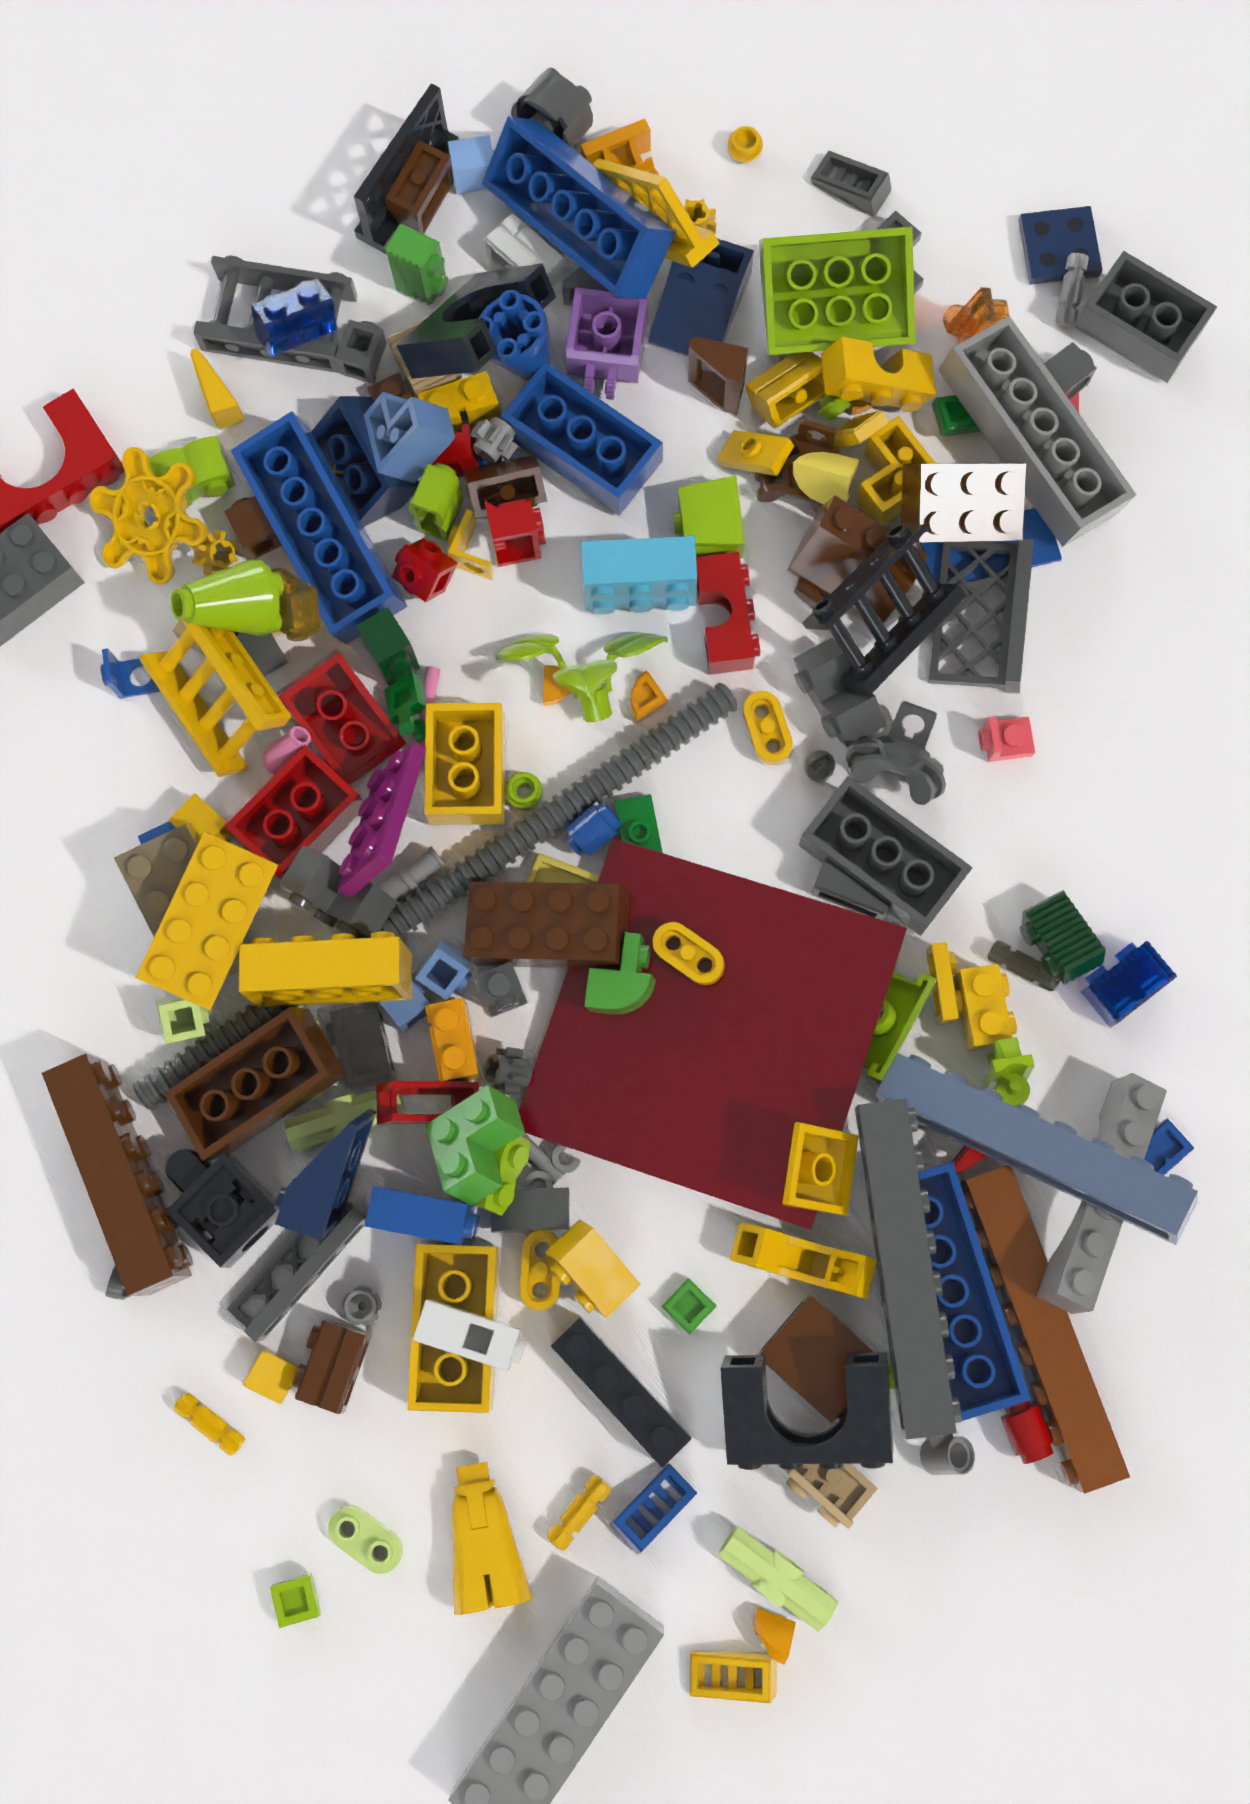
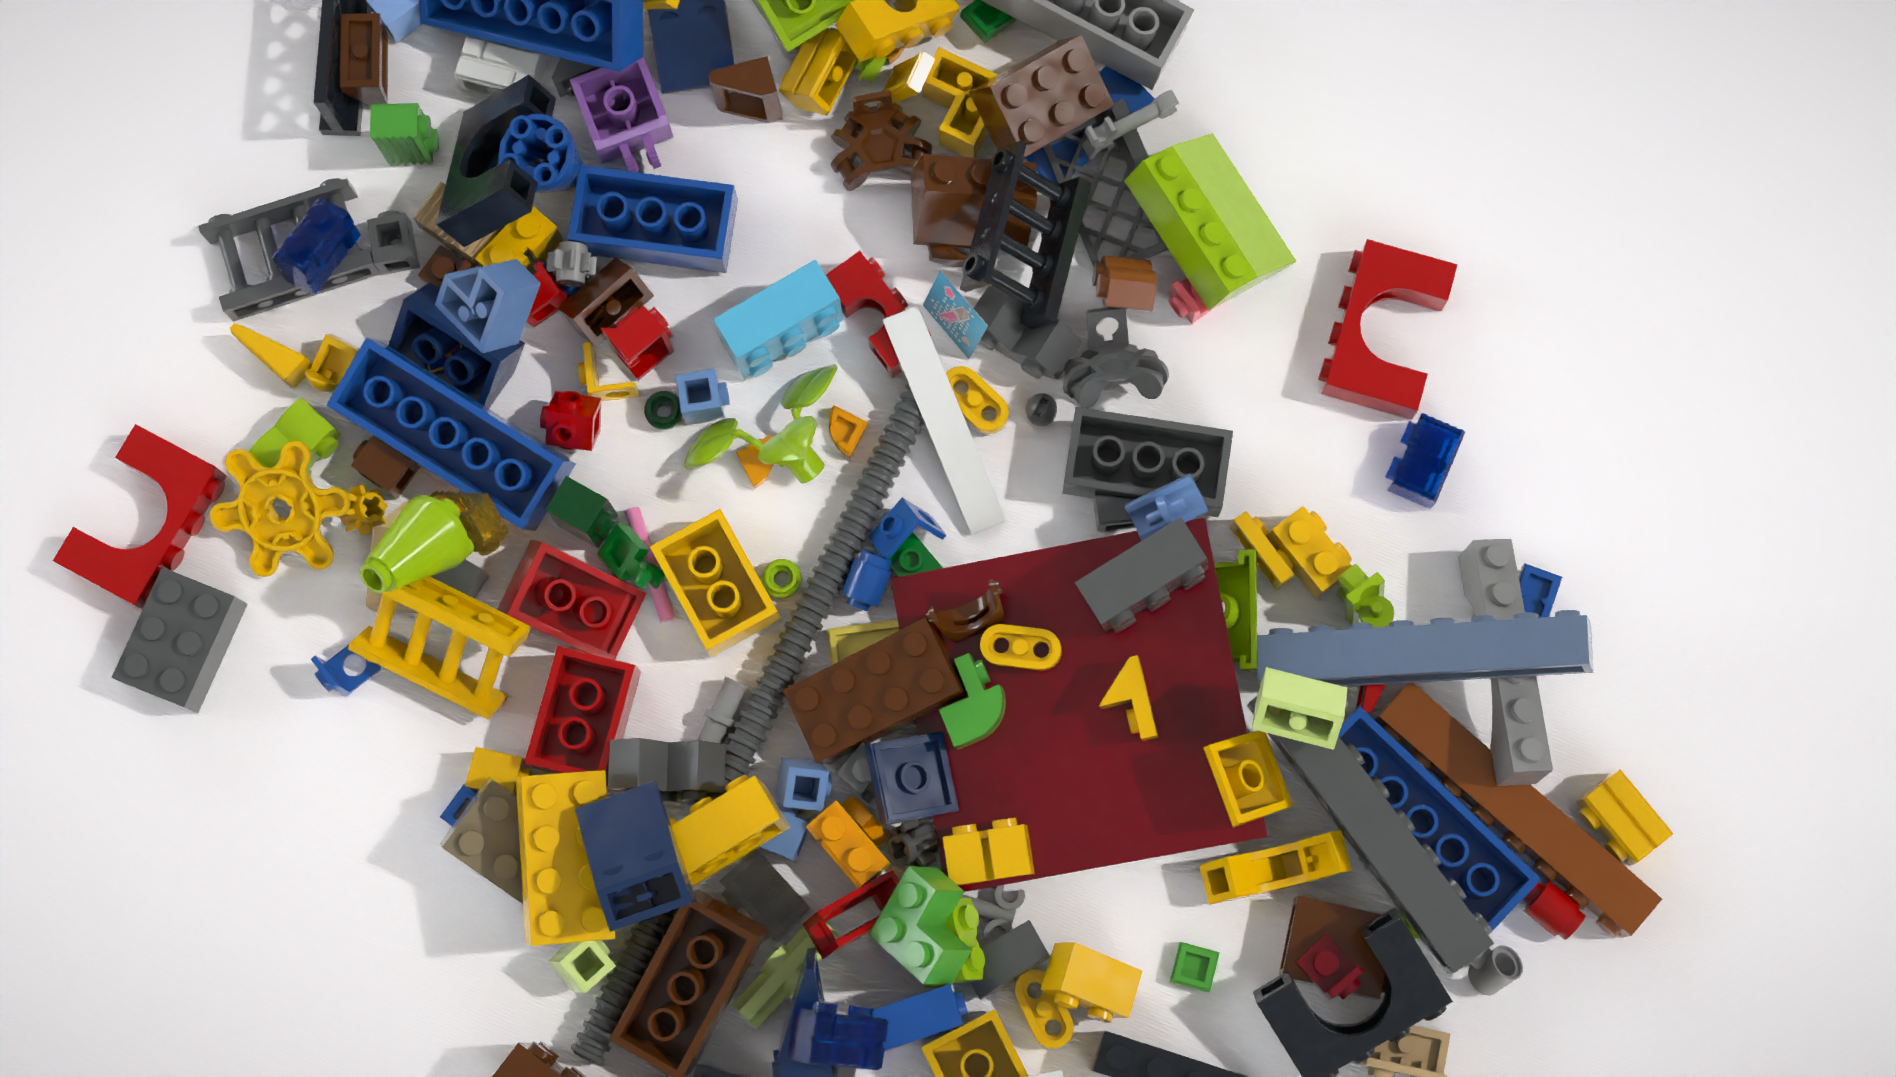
camera: 30 degrees left, 0 degrees up
(254, 420) = (330, 363): none -> yellow plate
(257, 949) = (634, 856): none -> dark blue slope
(284, 748) = (537, 661): bright pink cone -> none
(344, 1196) = (838, 1037): none -> clear blue brick
(381, 819) = (671, 676): magenta plate -> none
(436, 501) = (549, 350): lime brick -> none
(479, 1029) = (865, 820): none -> light orange tile
(502, 591) = (660, 399): none -> dark green plate
(535, 1013) = (911, 778): none -> dark blue tile
(540, 604) = (702, 396): none -> medium blue brick
(564, 1112) = (988, 854): none -> yellow piece
(639, 898) = (949, 619): none -> reddish brown helmet
(645, 796) = (898, 526): none -> blue bracket
(711, 515) = (815, 229): lime torso -> none
(731, 730) = (944, 420): none -> white sticker
(755, 452) = (822, 148): yellow plate -> none
(762, 1038) = (1128, 688): none -> yellow slope
(789, 647) = (955, 315): none -> medium azure sticker
(802, 1374) = (1330, 969): none -> dark red bracket
(823, 948) = (1144, 576): none -> dark grey brick
(825, 475) = (901, 137): light yellow brick -> none
(877, 901) = (1165, 505): none -> medium blue hips
(896, 1134) = (1299, 708): none -> yellowish green brick
(948, 694) = (1125, 283): none -> dark orange brick
(998, 560) = (1103, 136): none -> light grey bar
(1022, 965) = (1325, 494): clear smoke axle -> none
(1051, 678) = (1209, 219): none -> lime slope
(1062, 938) = (1345, 451): dark green brick -> none
(1134, 1387) = (1623, 818): none -> yellow brick
(1177, 805) = (1353, 370): none -> red arch

